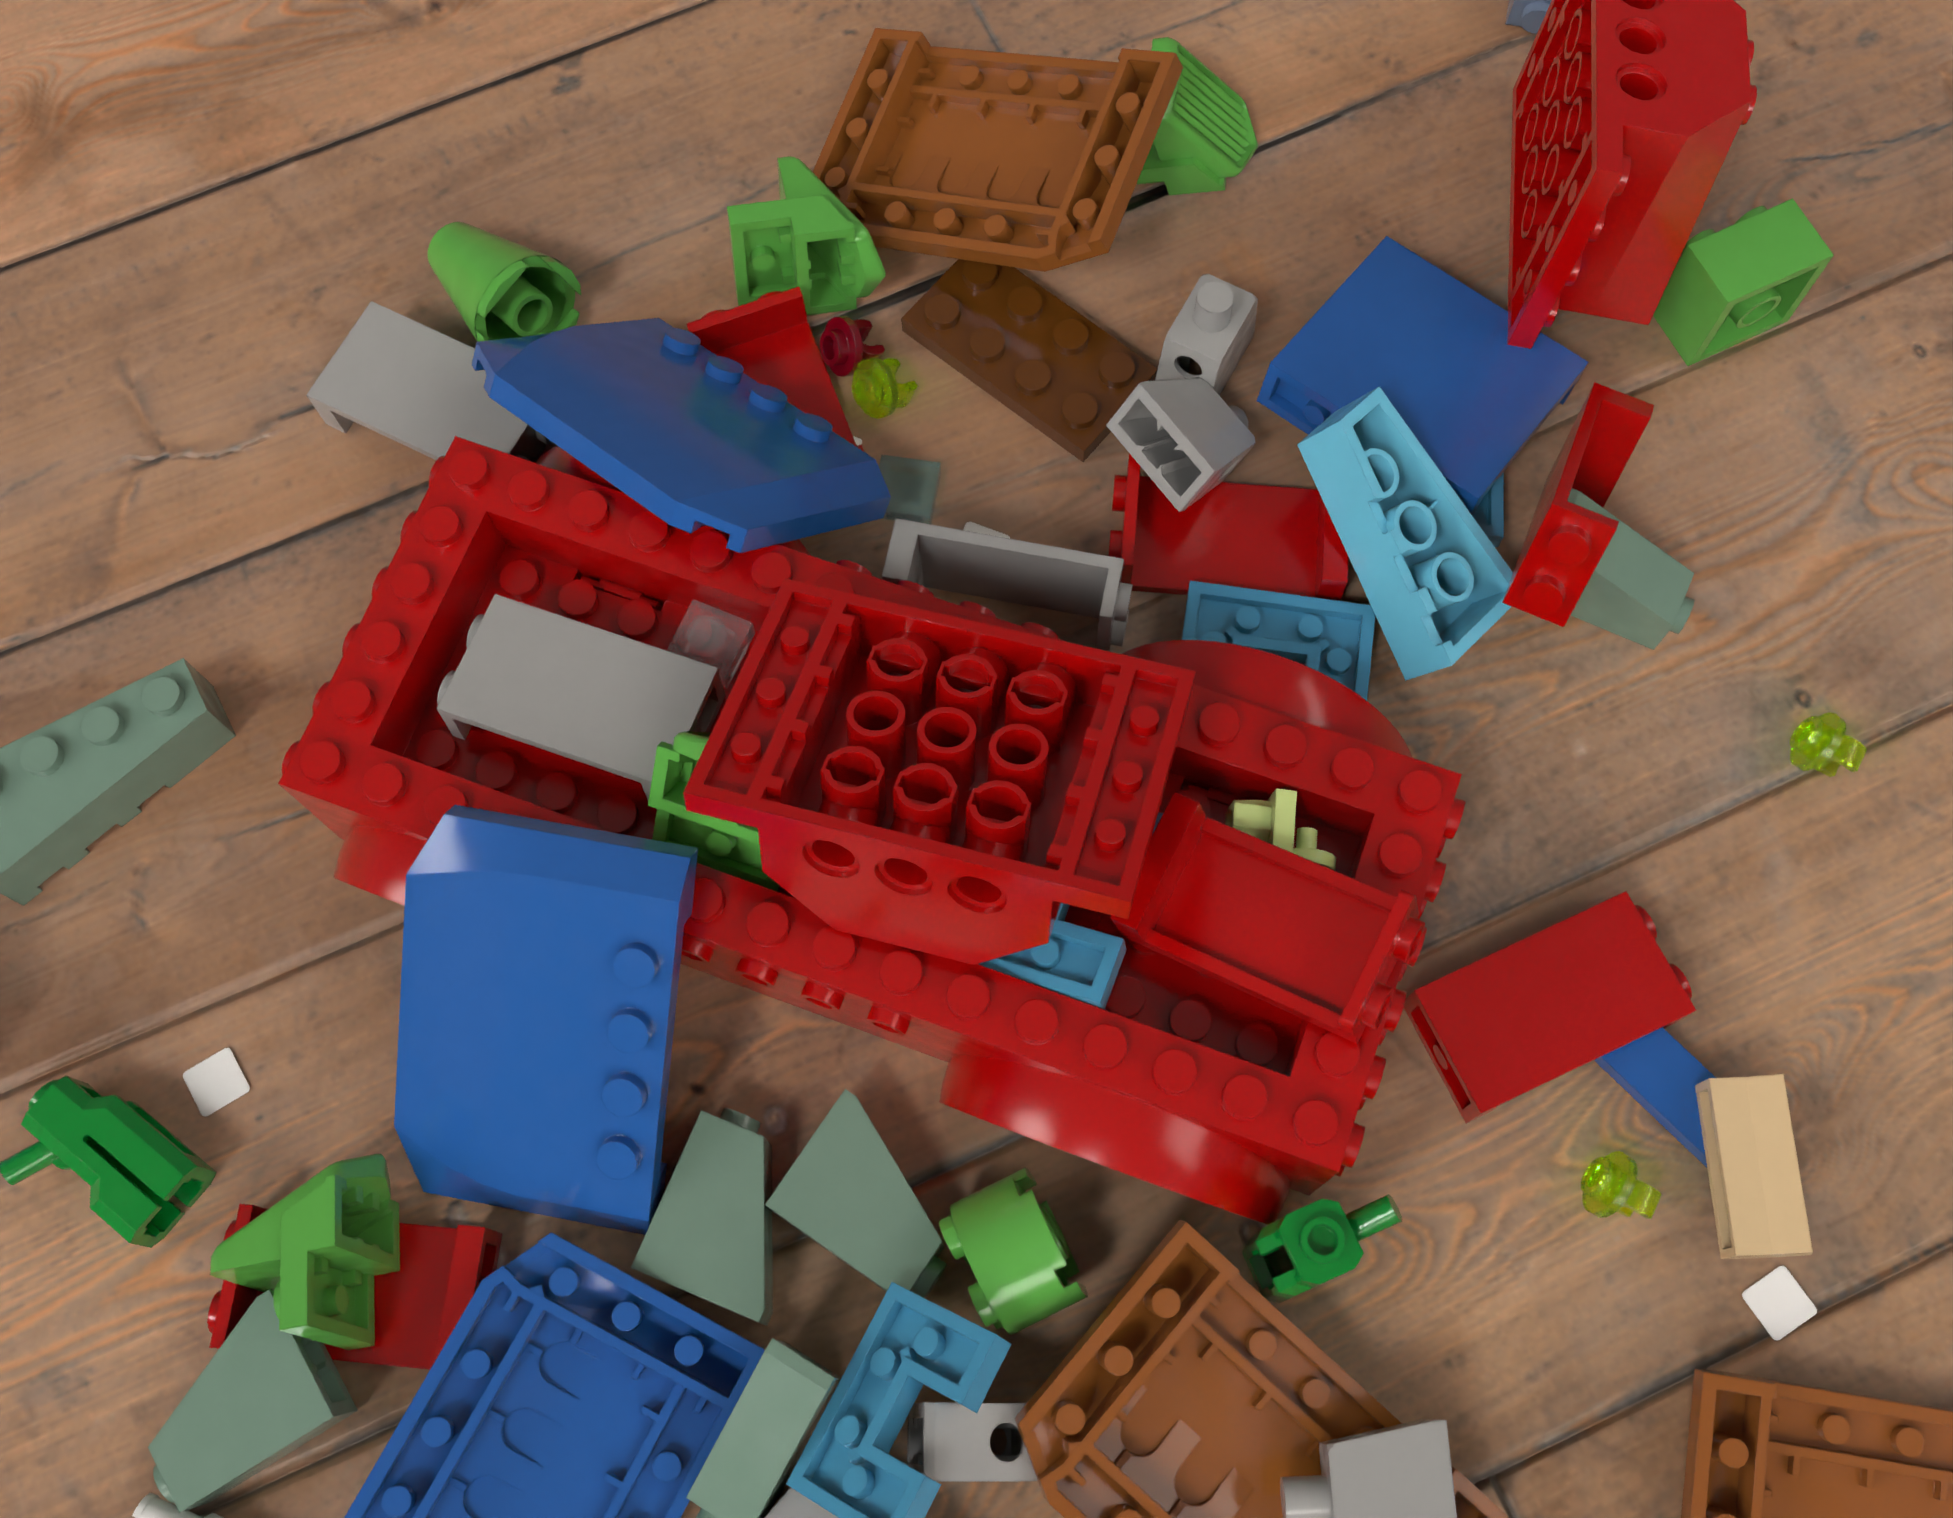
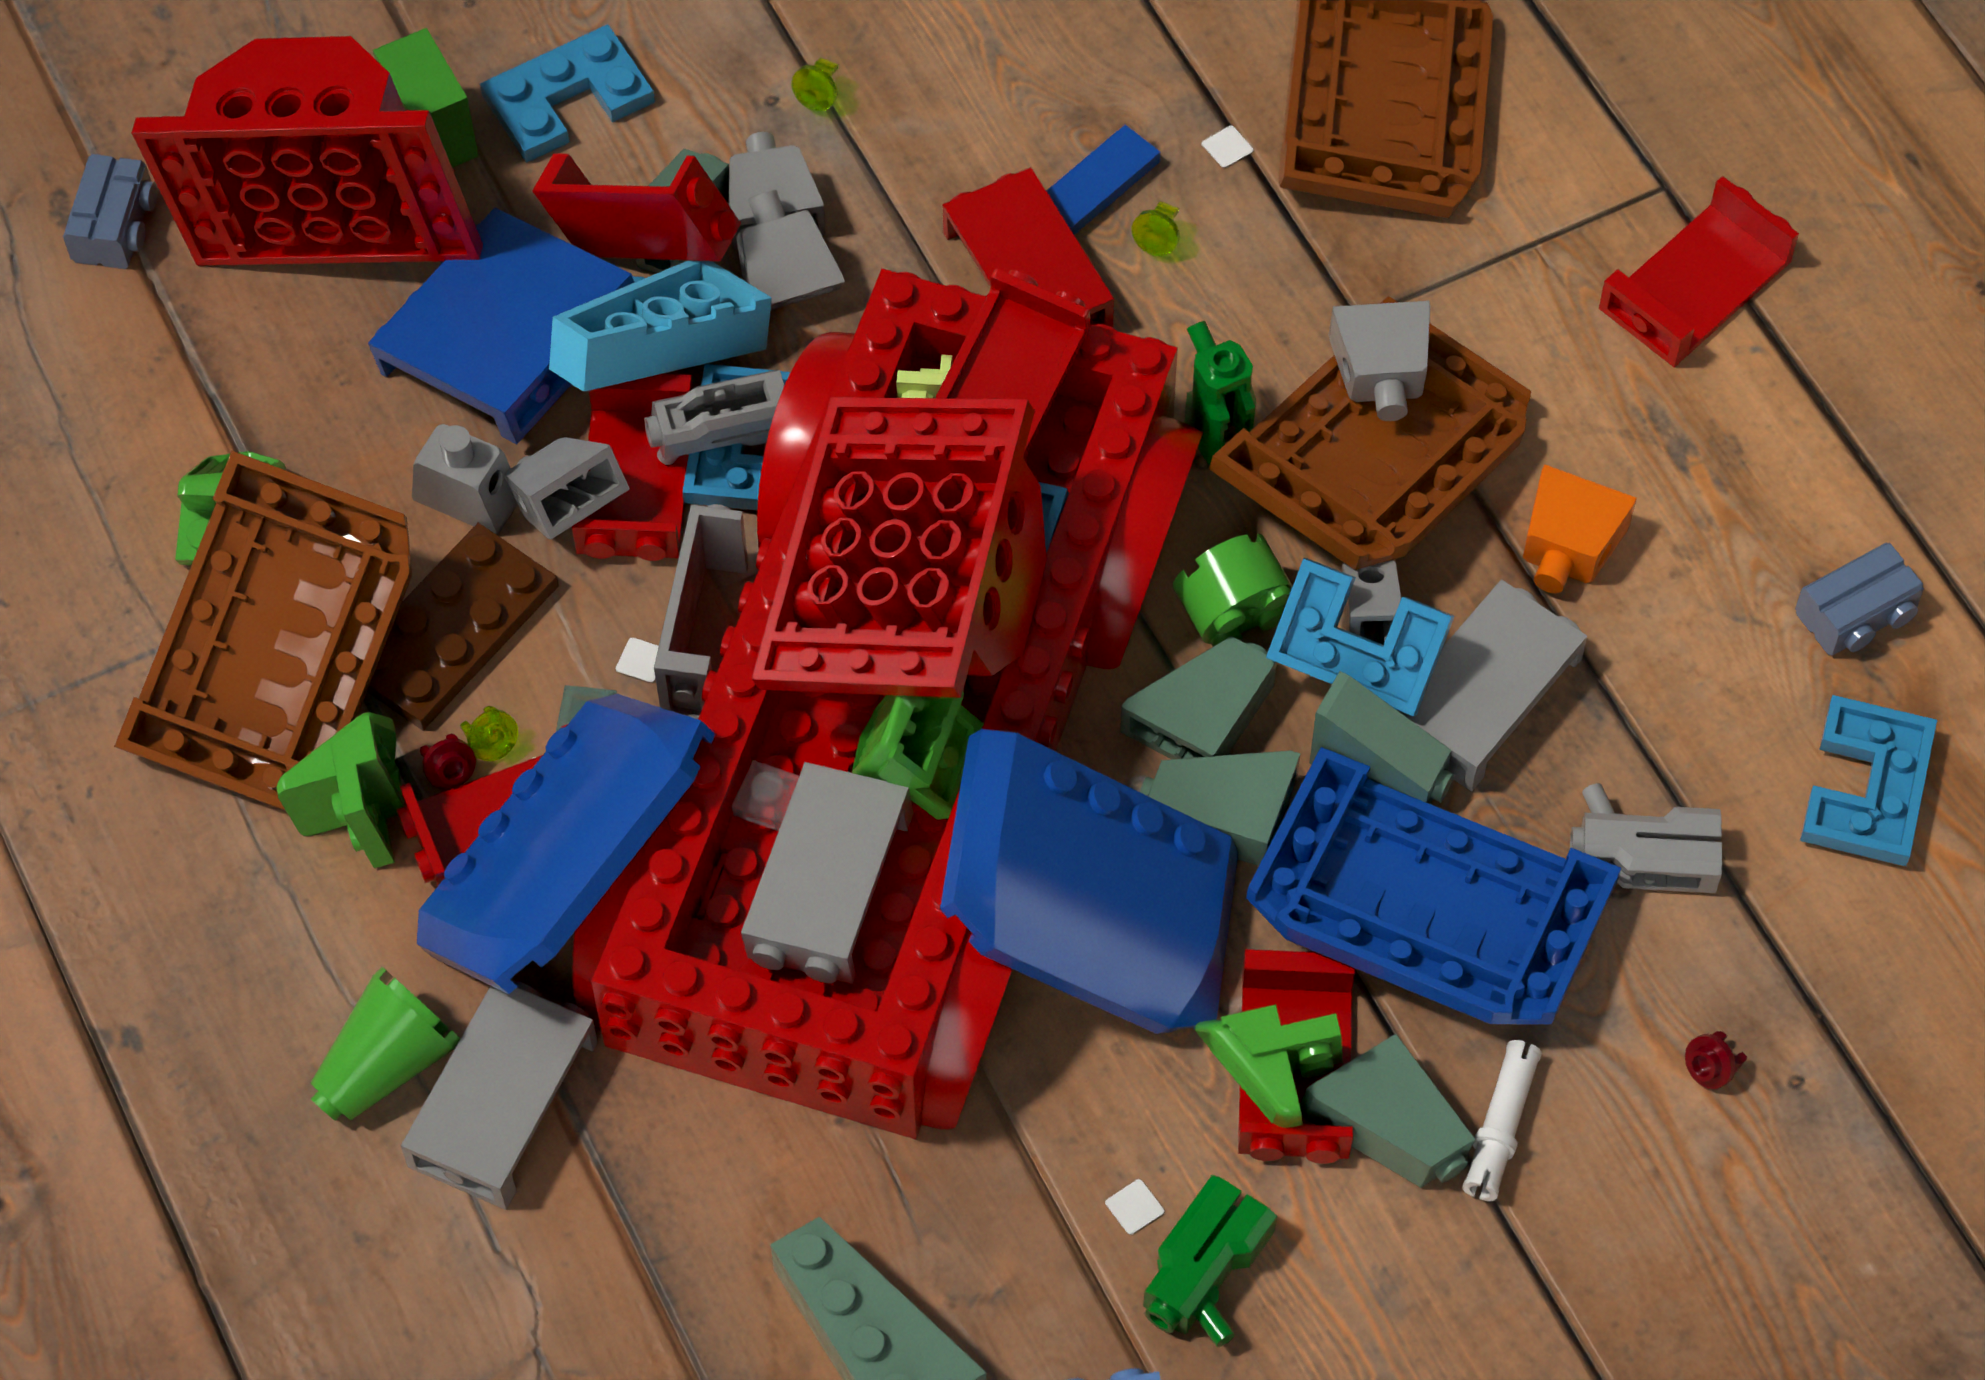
camera: 95 degrees left, 10 degrees down
(1272, 592) = (715, 416): none -> light grey piece
(1534, 693) = (786, 254): none -> light grey torso
(1642, 685) = (770, 169): none -> light grey torso
(1753, 1167) = (1139, 144): tan piece -> none
(1833, 474) = (527, 92): none -> dark azure plate

